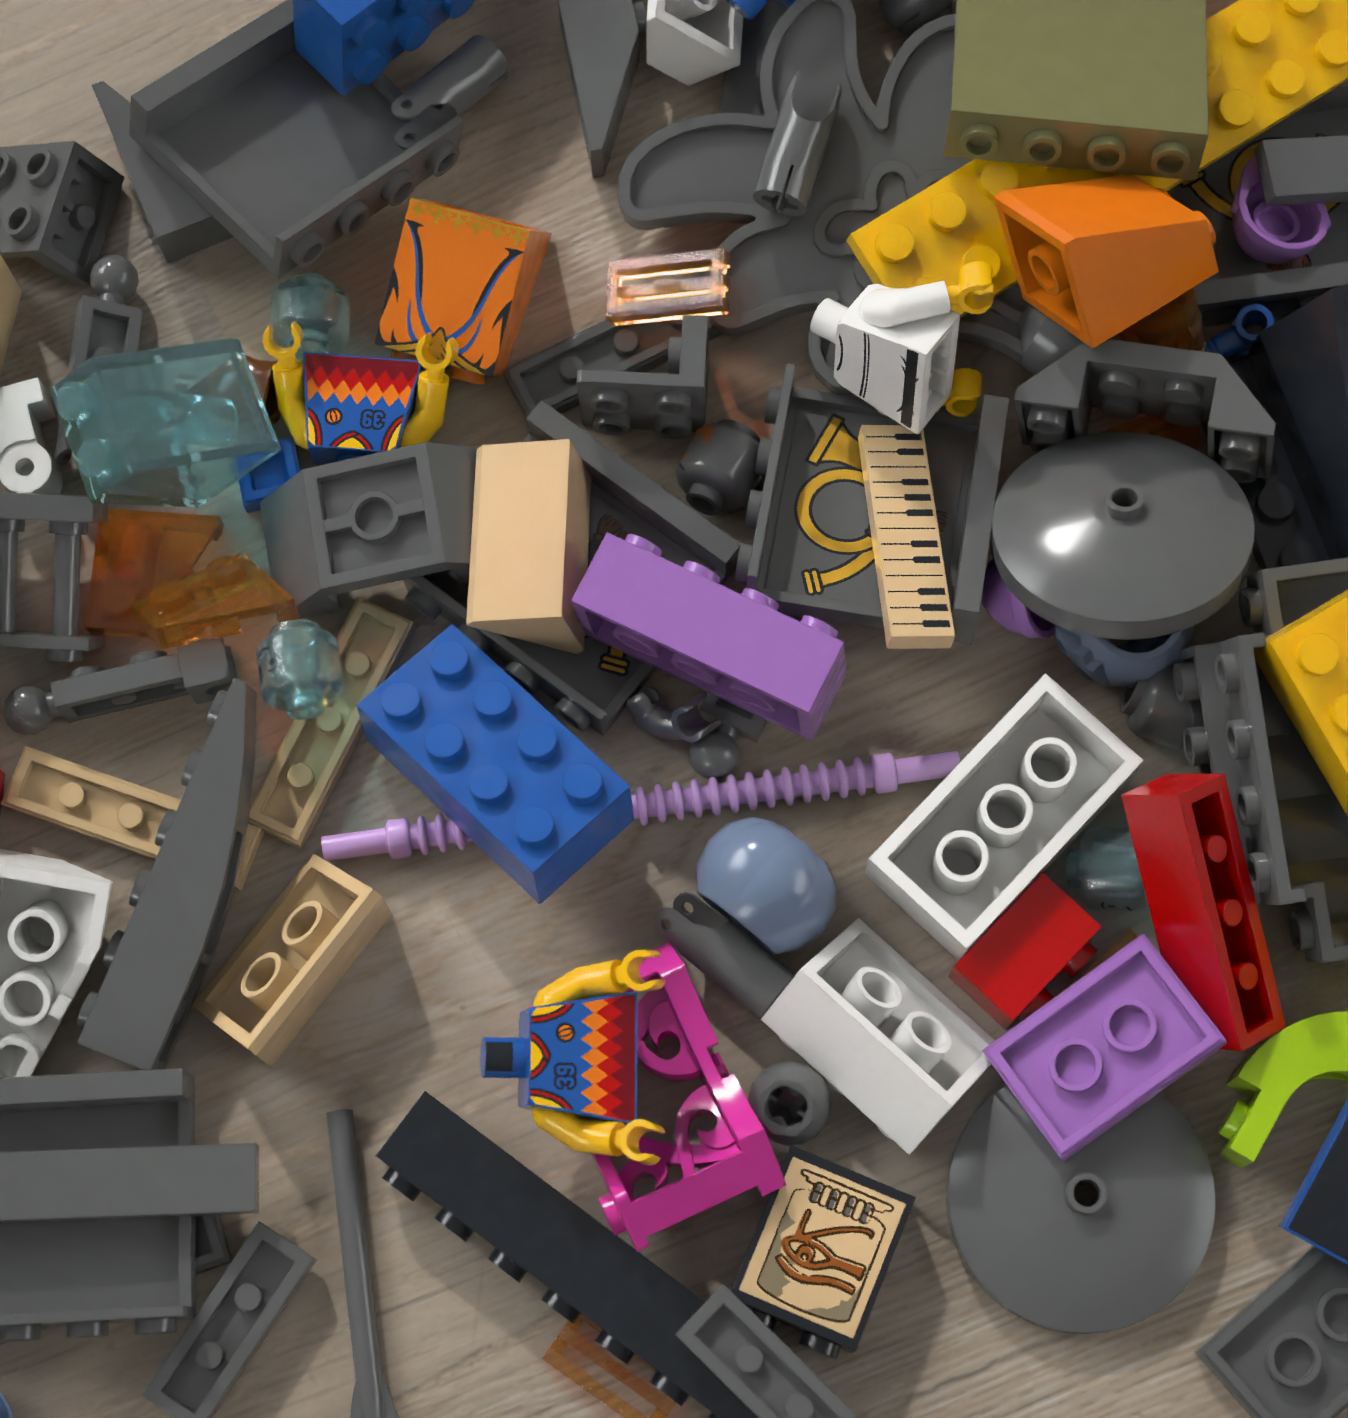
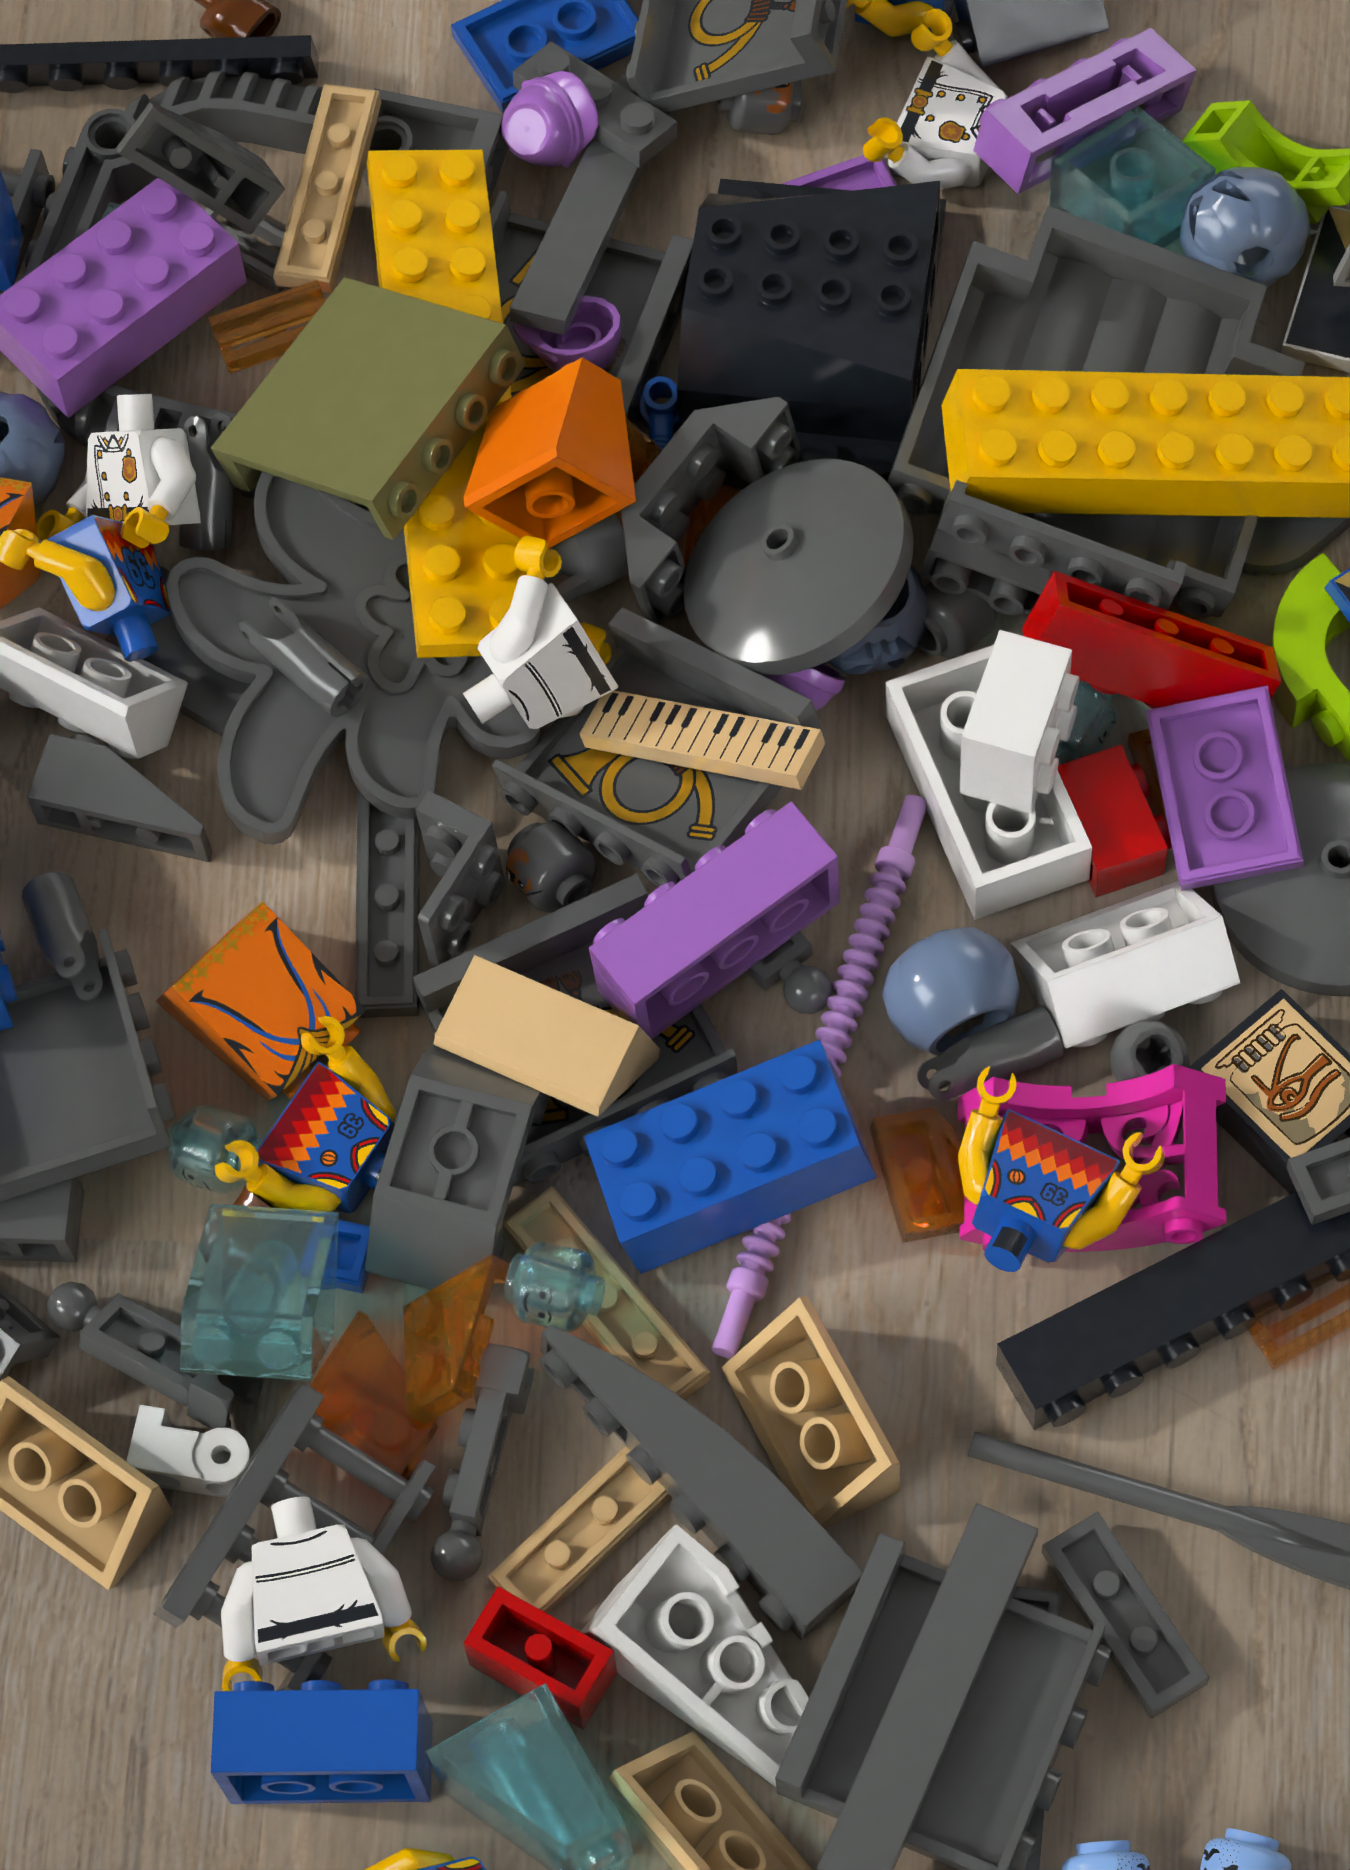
camera: 60 degrees left, 10 degrees down
(585, 932) = (920, 1172): none -> clear orange wing
(664, 723) = (753, 1021): flat silver arm -> none
(671, 308) = (384, 840): clear orange tile -> none
(1042, 814) = (1018, 722): none -> white brick

